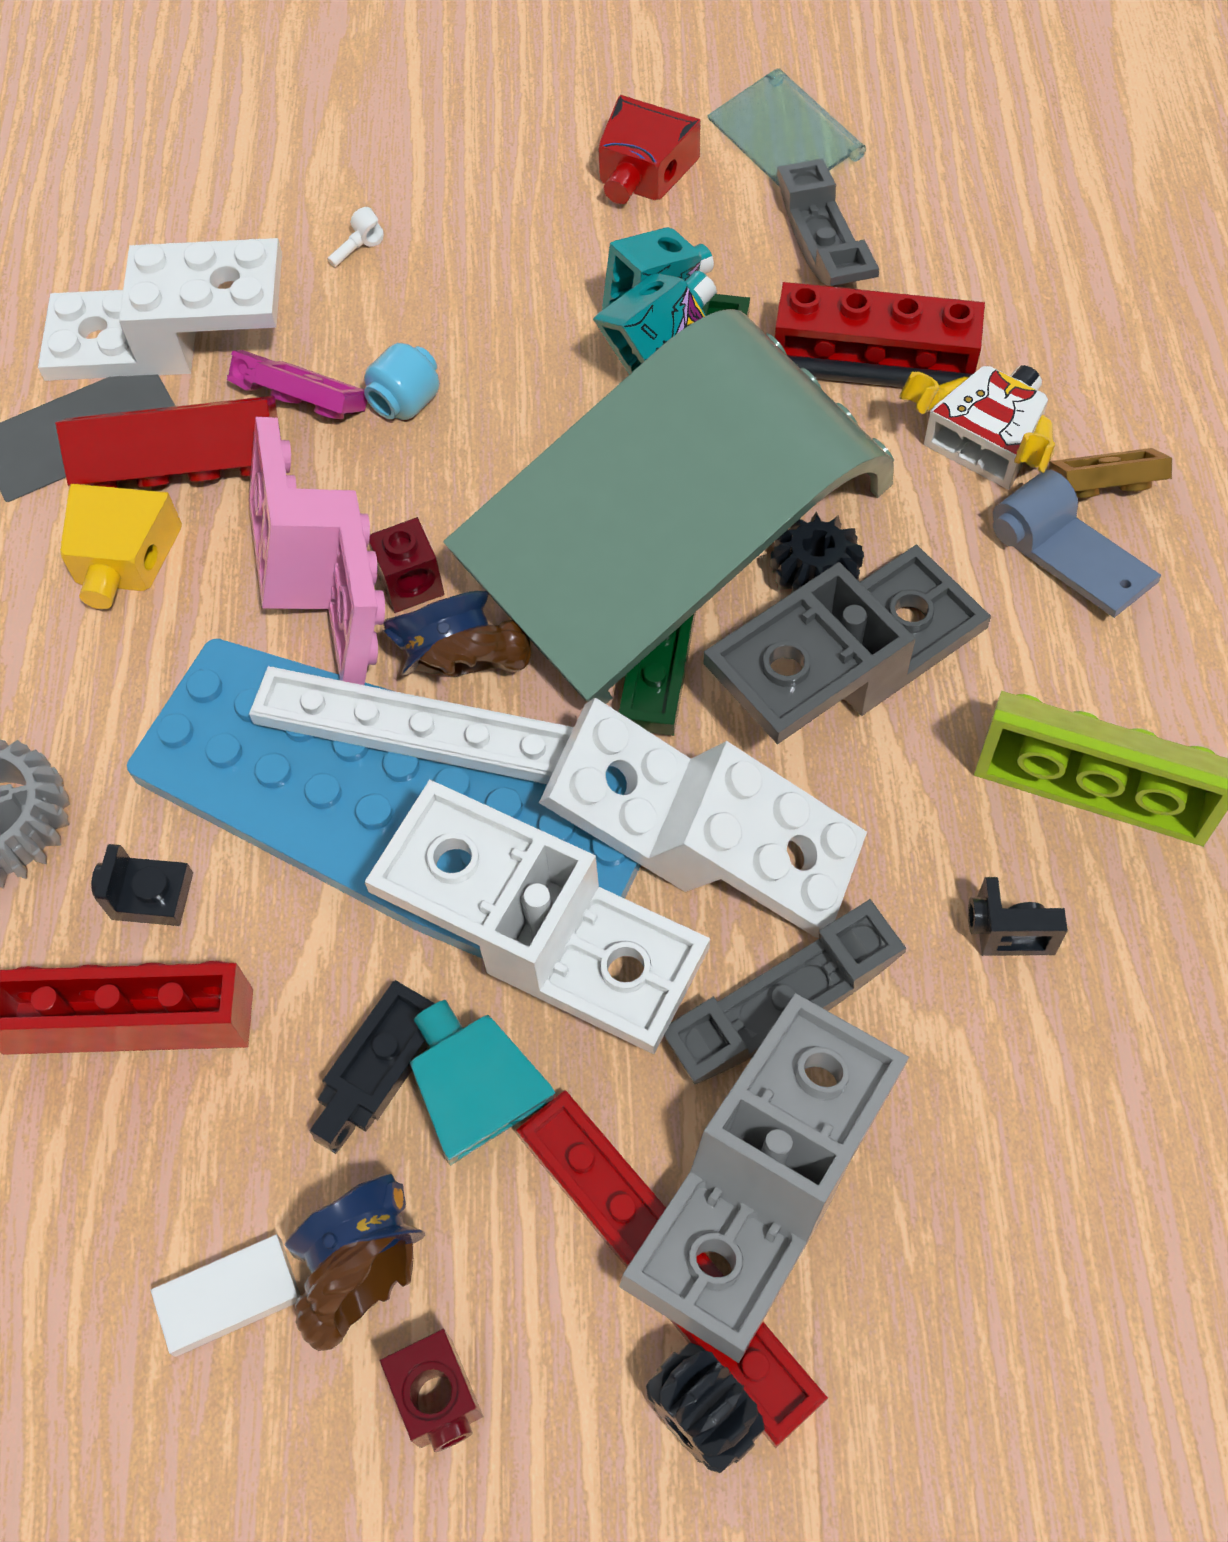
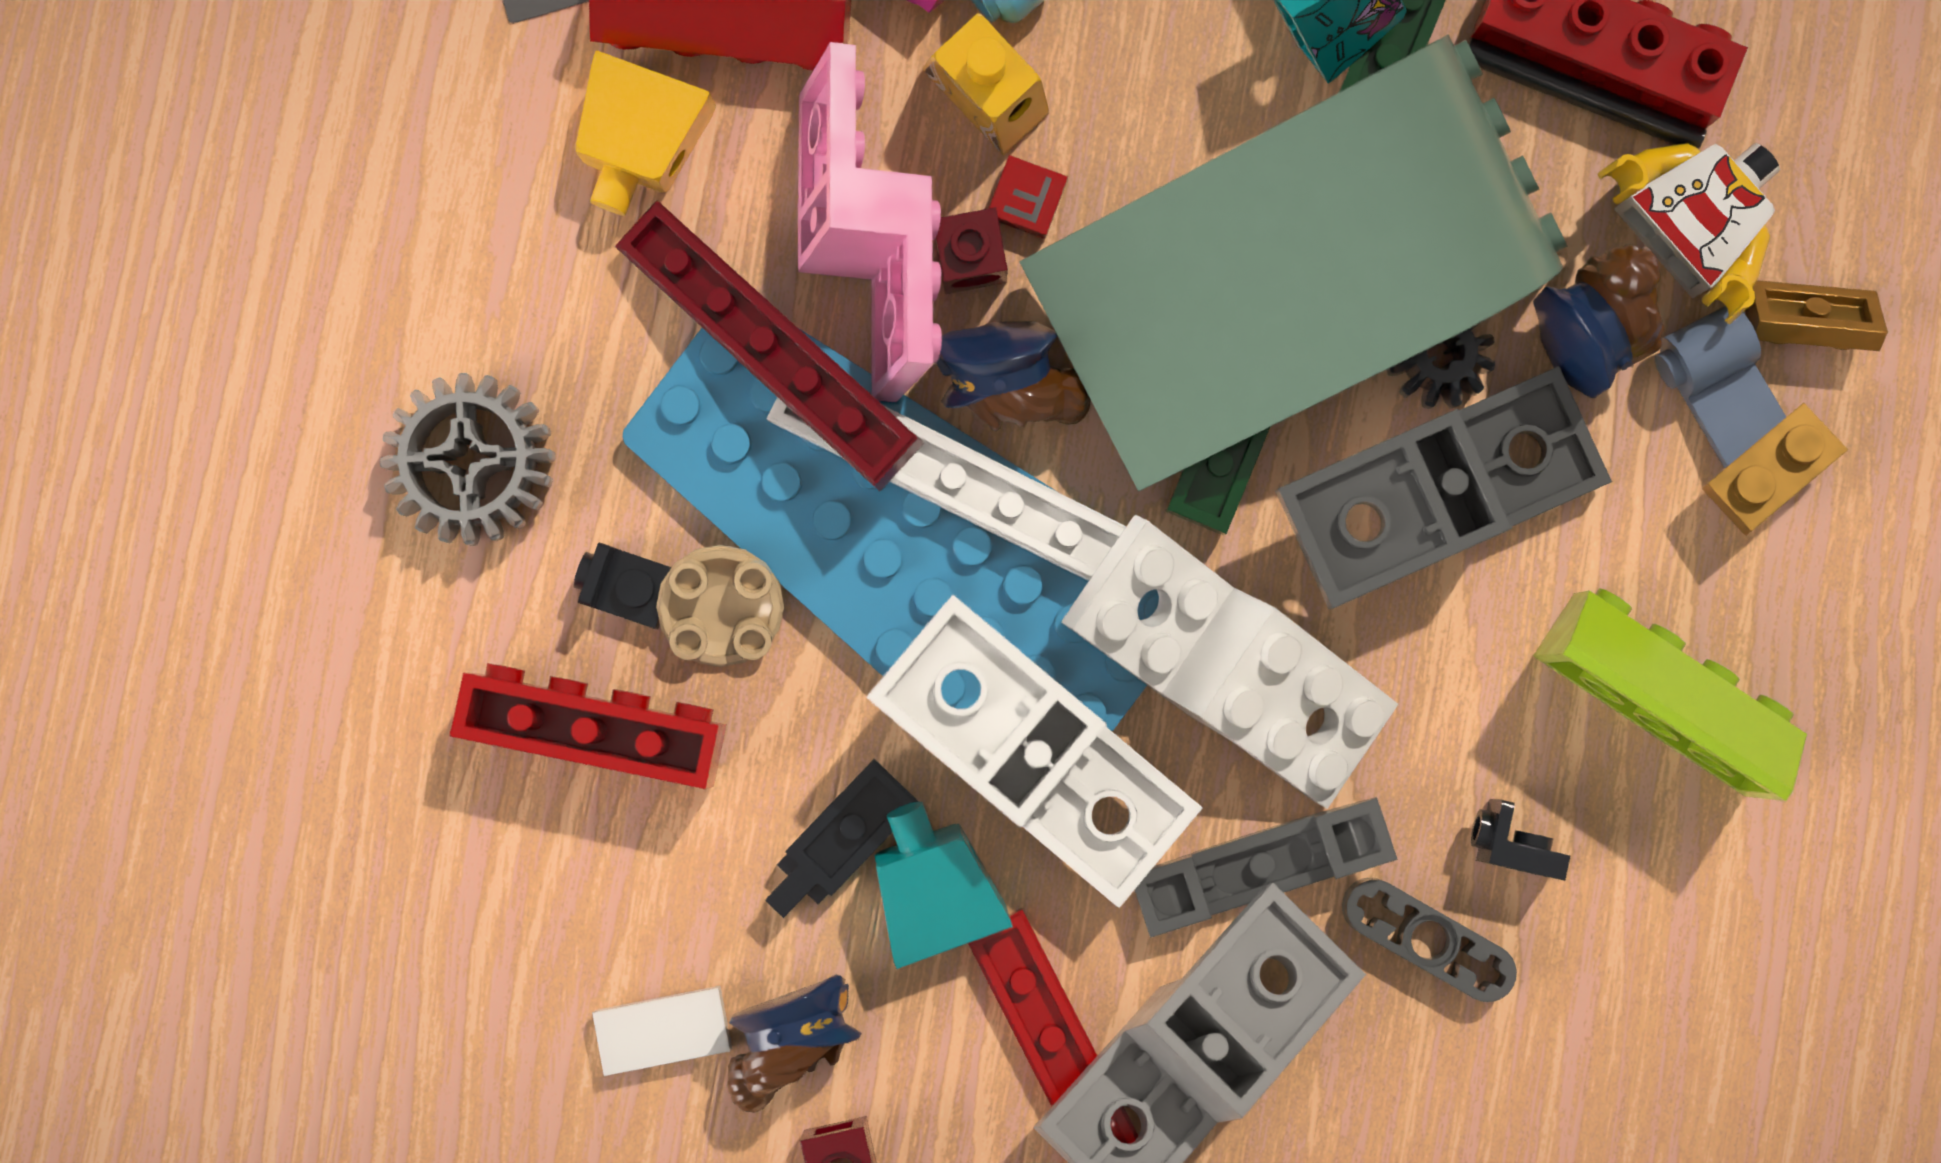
camera: 10 degrees right, 25 degrees up
(231, 884) = (720, 606): none -> tan dish
(248, 658) = (770, 346): none -> dark red tile
(396, 445) = (988, 81): none -> yellow torso
(442, 518) = (1028, 196): none -> red tile
(939, 494) = (1603, 318): none -> piece
(1004, 1055) = (1478, 946): none -> dark grey beam
(1122, 576) = (1774, 469): none -> pearl gold plate

